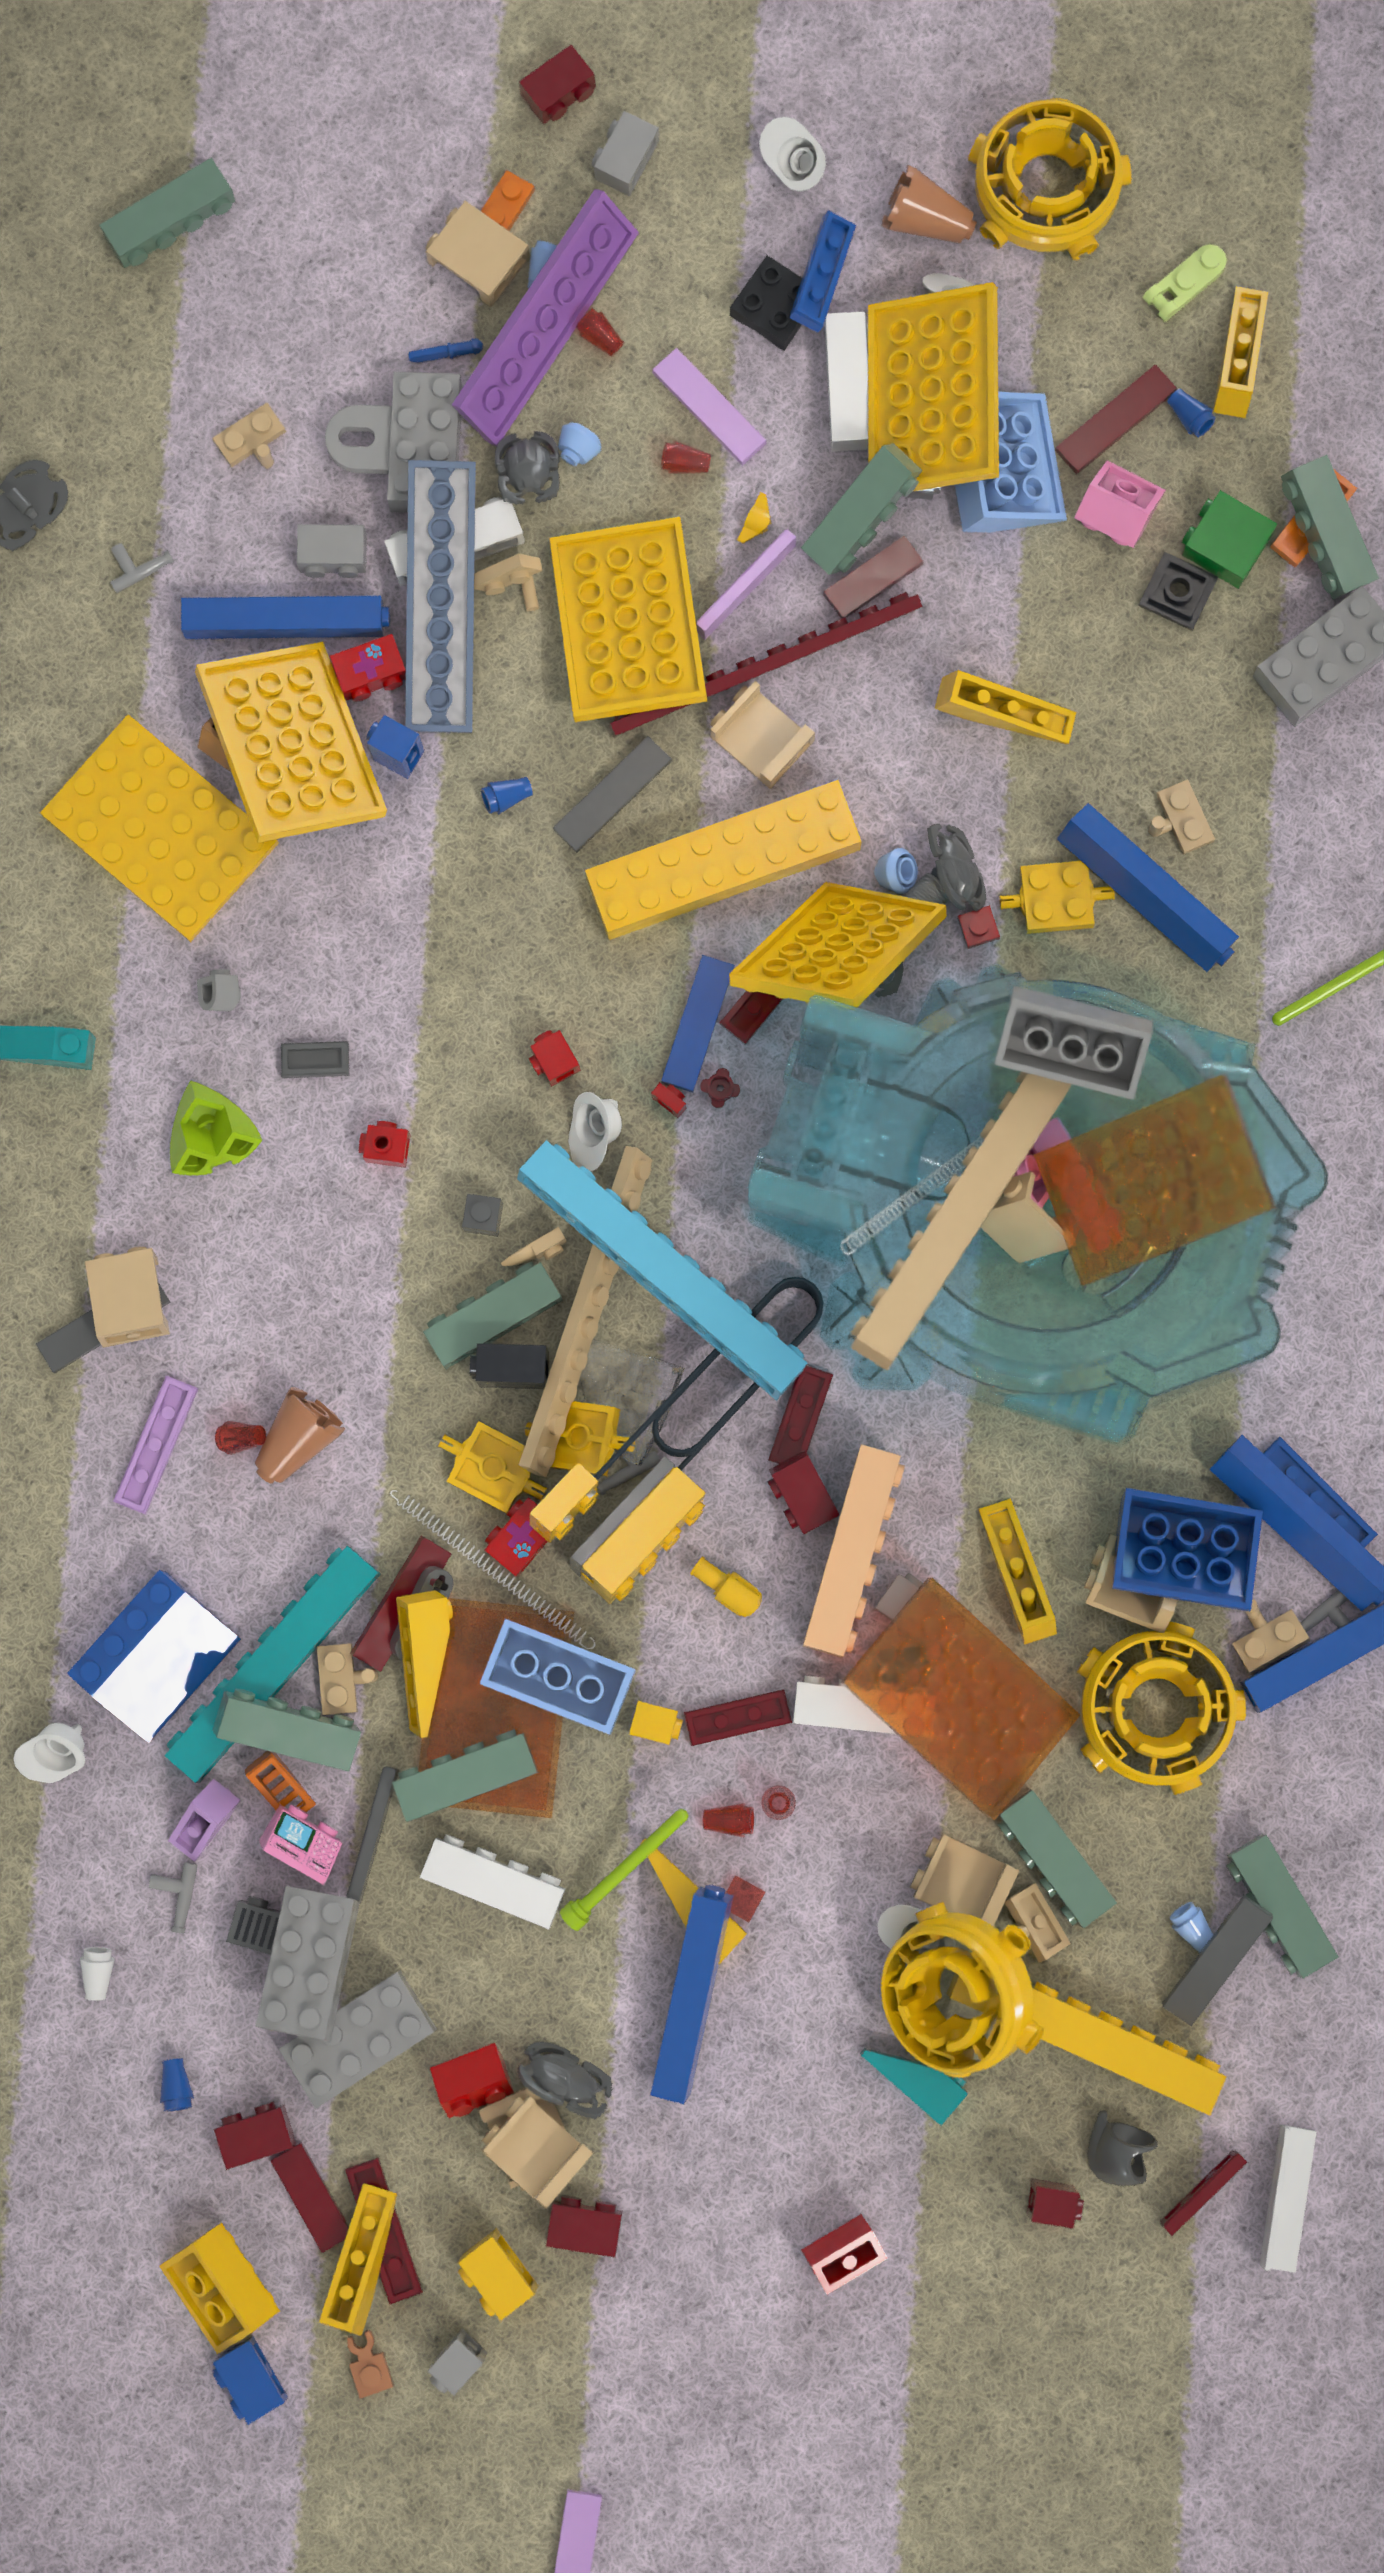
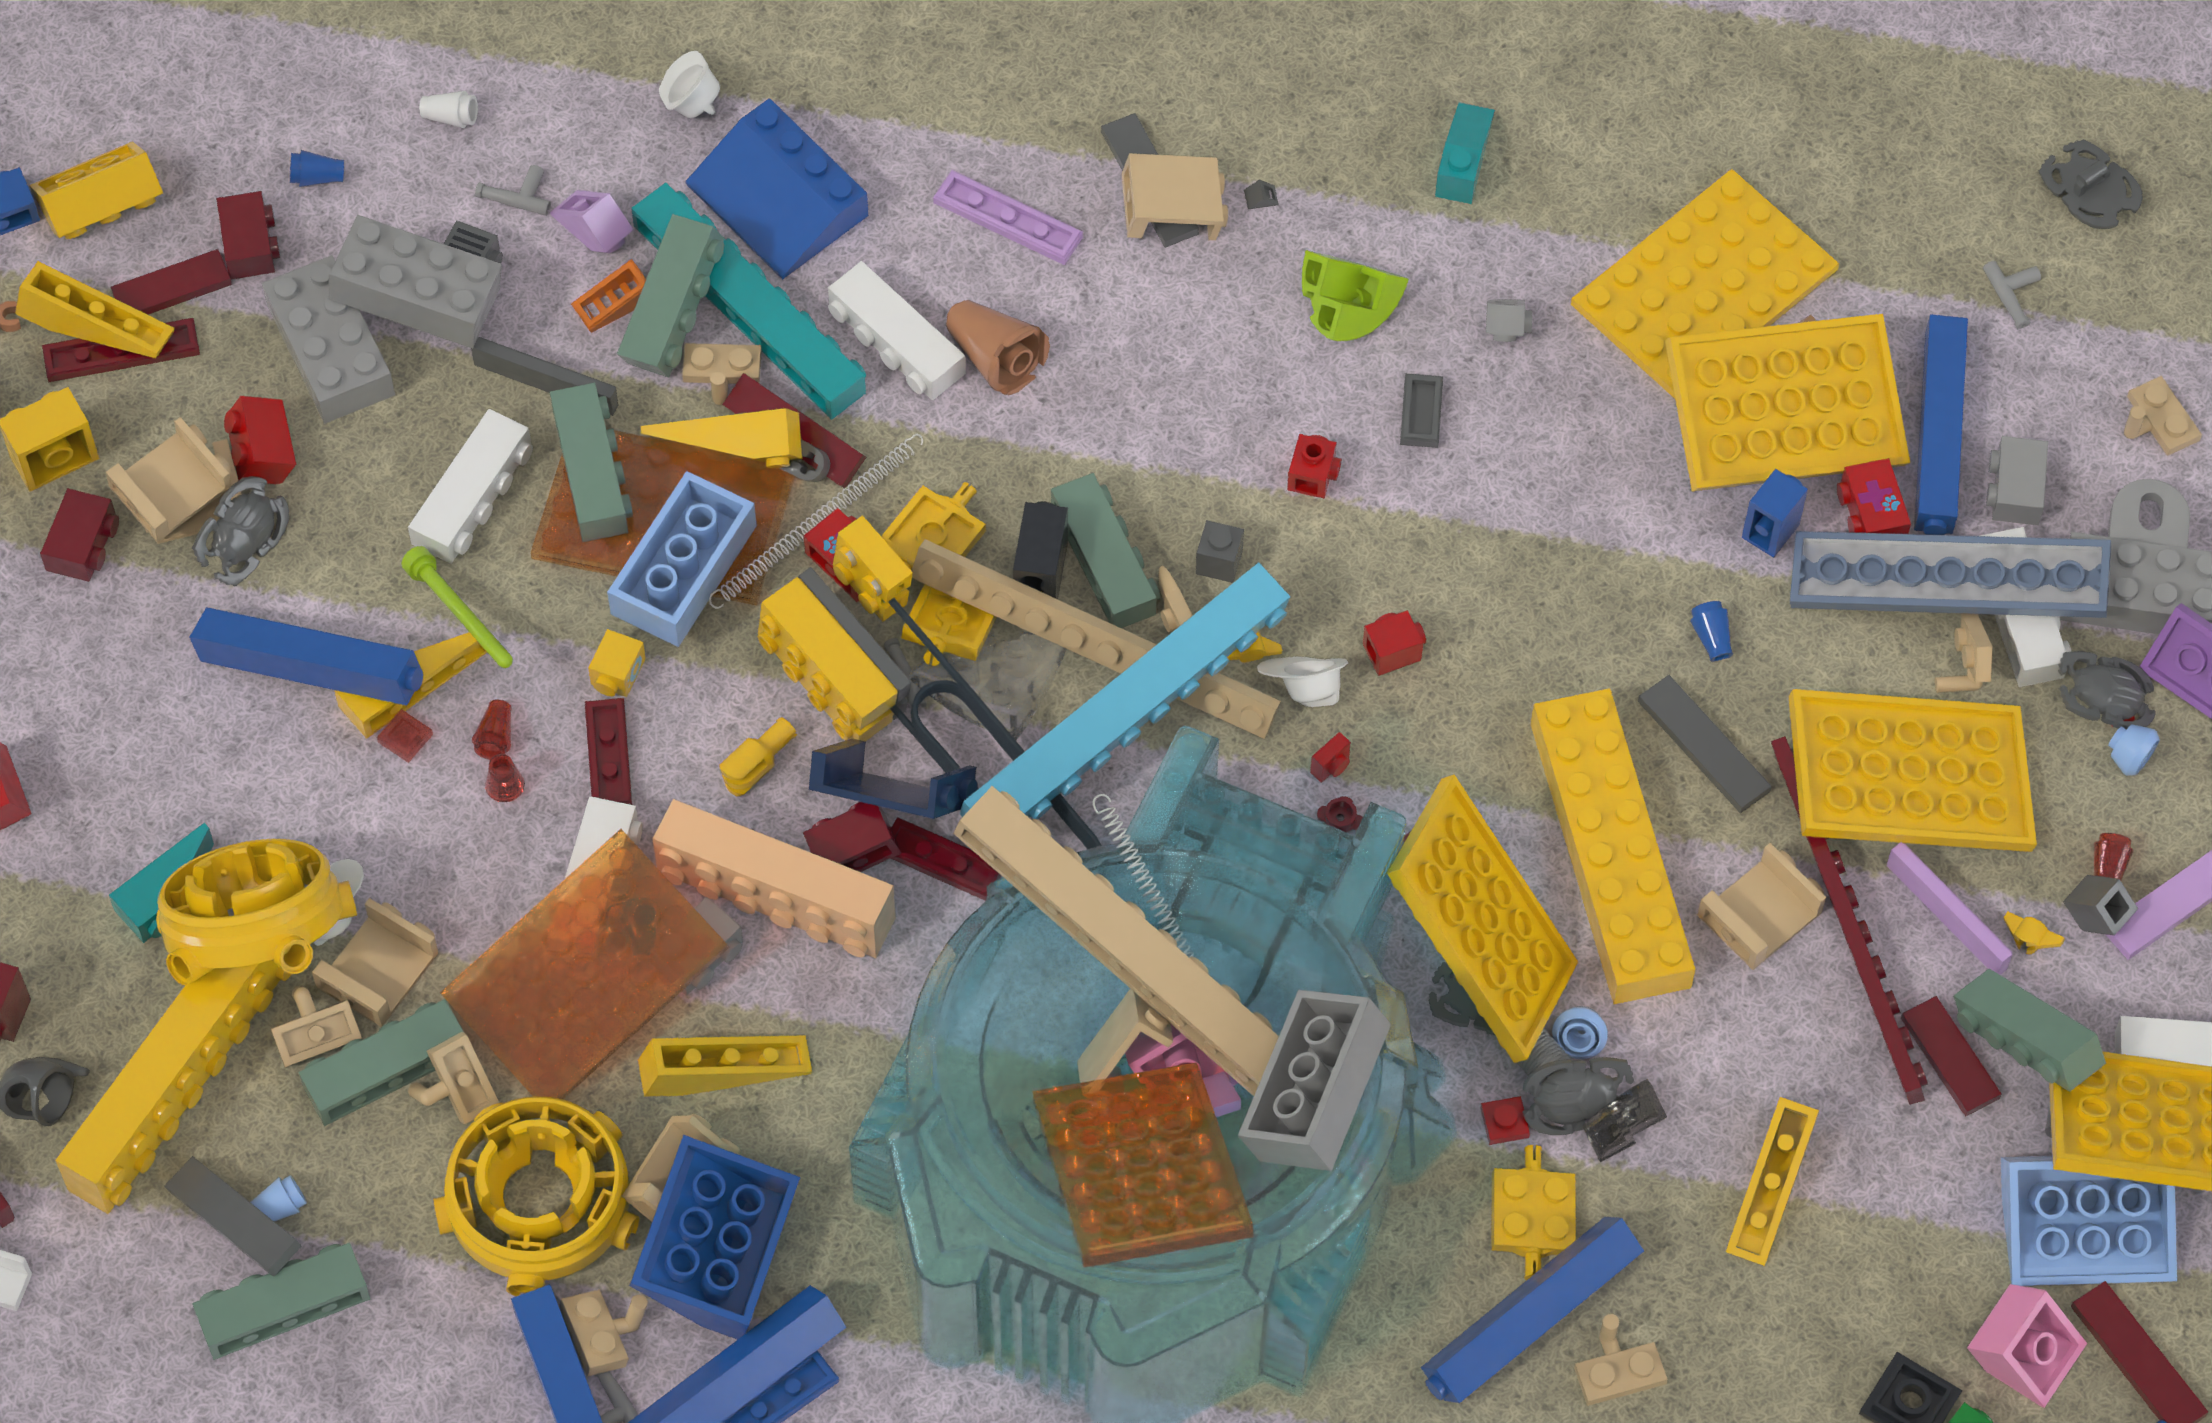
camera: 90 degrees right, 20 degrees down
(109, 1224) = (1258, 195): none -> dark grey piece
(237, 1437) = (1003, 288): clear red cone -> none
(290, 1527) = (896, 331): none -> white brick
(301, 1843) = (545, 298): bright pink slope -> none
(697, 1023) = (1395, 791): blue tile -> none
(730, 463) = (2100, 905): none -> dark grey brick
(760, 1464) = (840, 773): none -> dark blue panel
(976, 838) = (1628, 1114): none -> clear smoke slope
(1068, 1790) = (460, 1079): none -> tan plate

